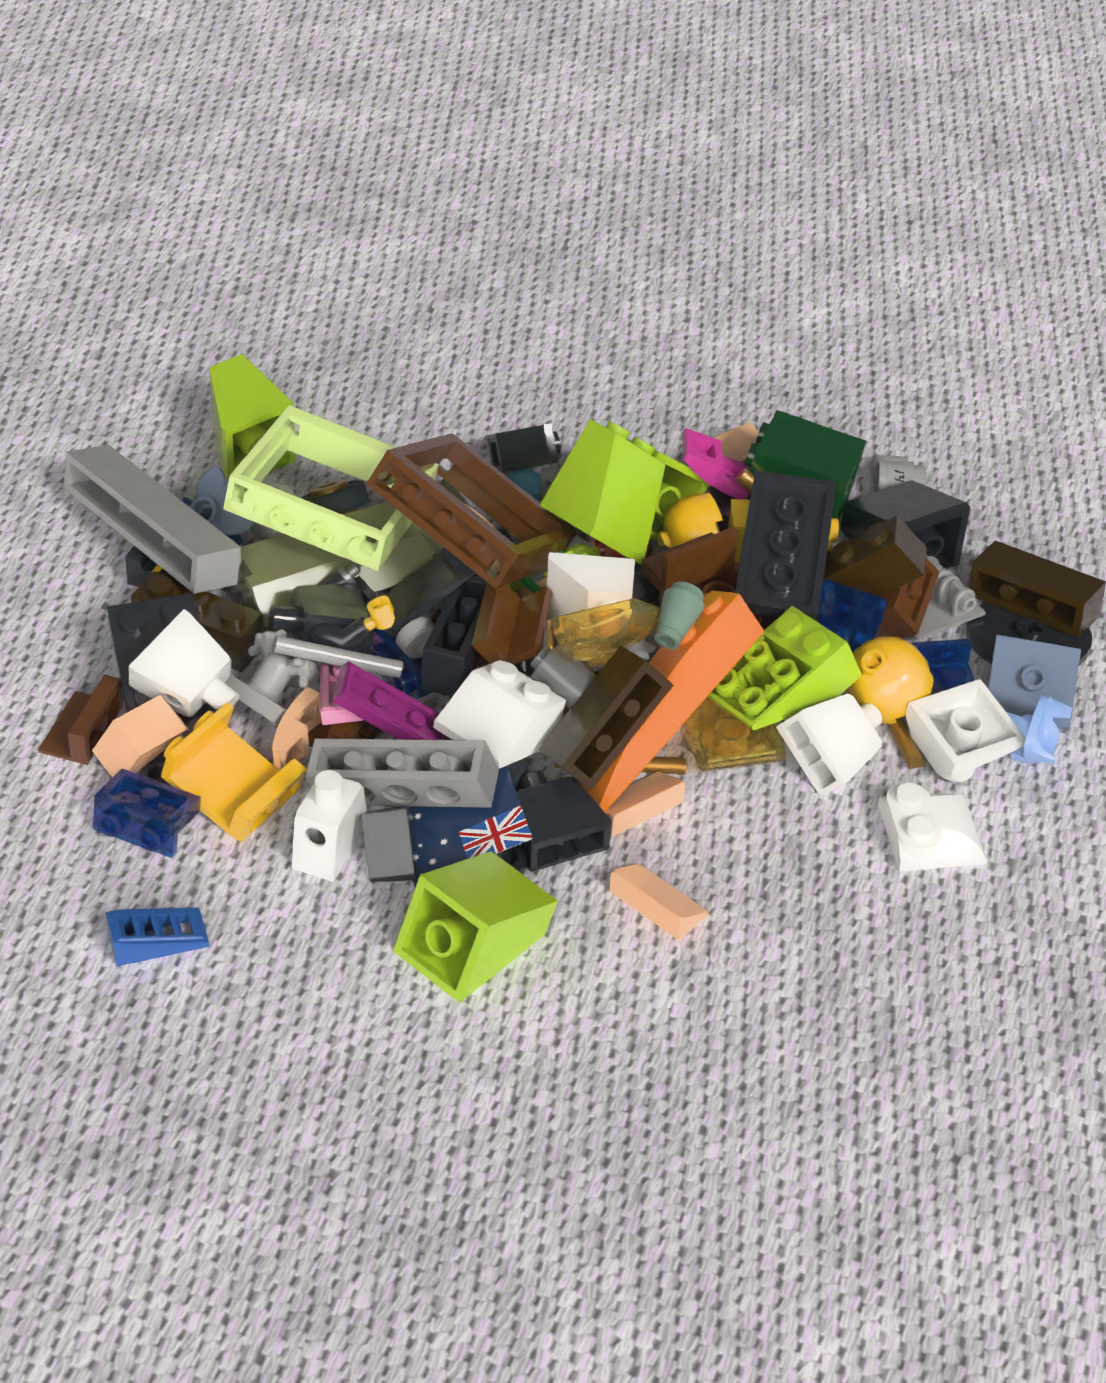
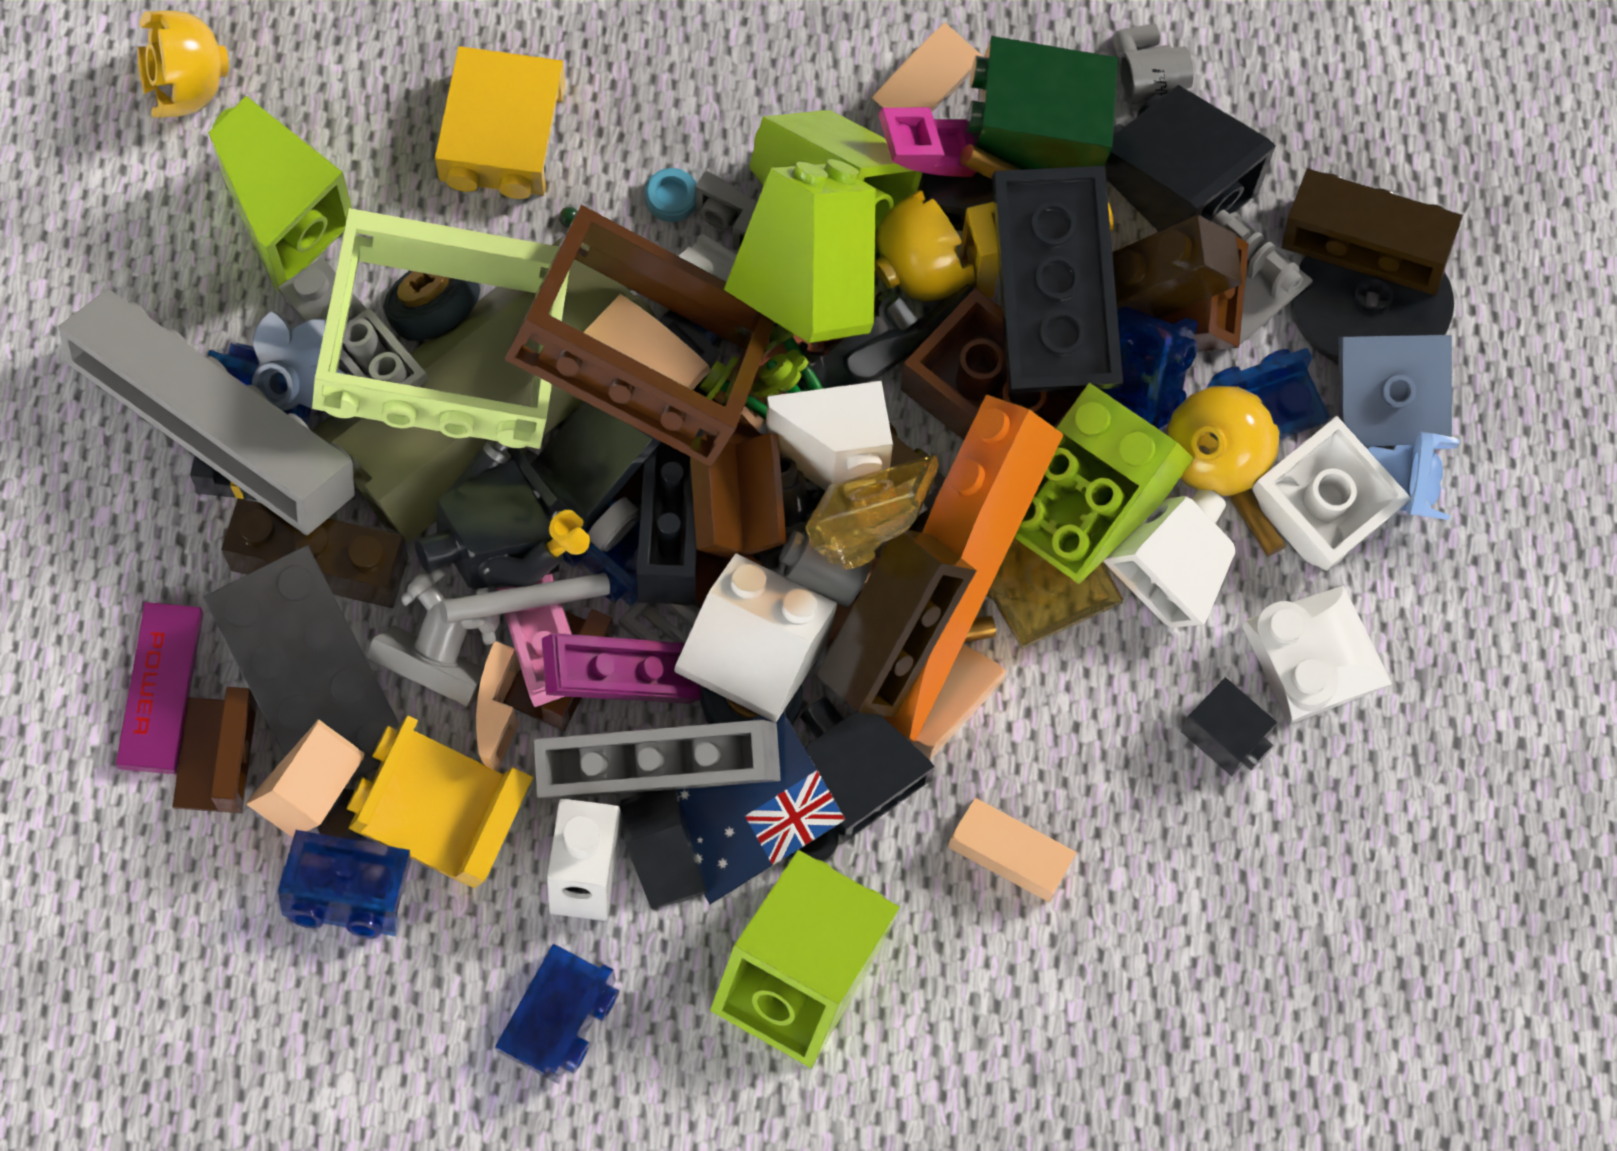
camera: 15 degrees left, 25 degrees up
(56, 681) = (160, 688): none -> magenta tile
(141, 947) = (405, 1096): blue slope -> none
(184, 668) = (338, 674): white torso -> none
(203, 347) = (183, 55): none -> yellow cylinder
(276, 921) = (557, 1013): none -> clear blue bracket
(416, 411) = (499, 121): none -> yellow panel
(524, 448) = (661, 149): black slope -> none
(678, 613) = (960, 463): sand green cone -> none
(692, 560) = (935, 324): reddish brown panel -> none
(849, 853) = (1230, 728): none -> black brick

